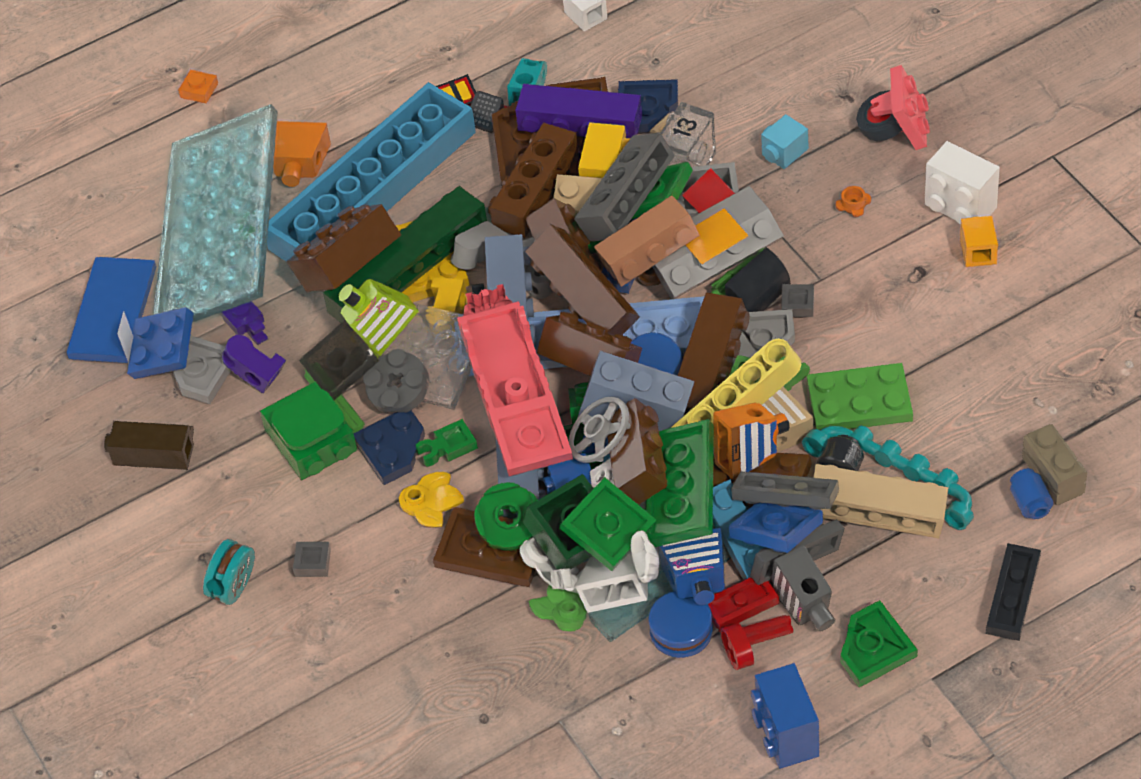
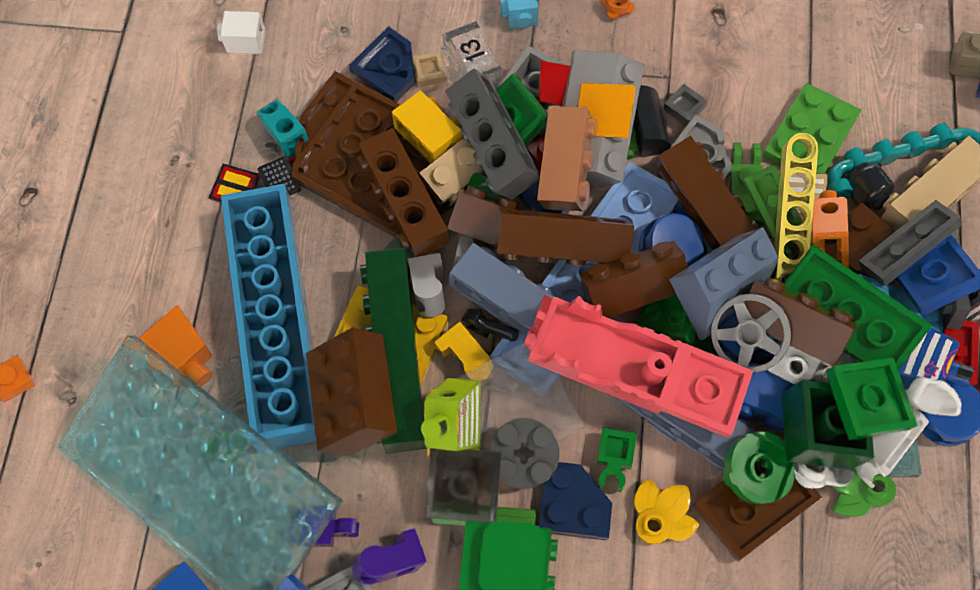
camera: 55 degrees left, 15 degrees up
(576, 108) = (360, 113): dark purple brick -> none

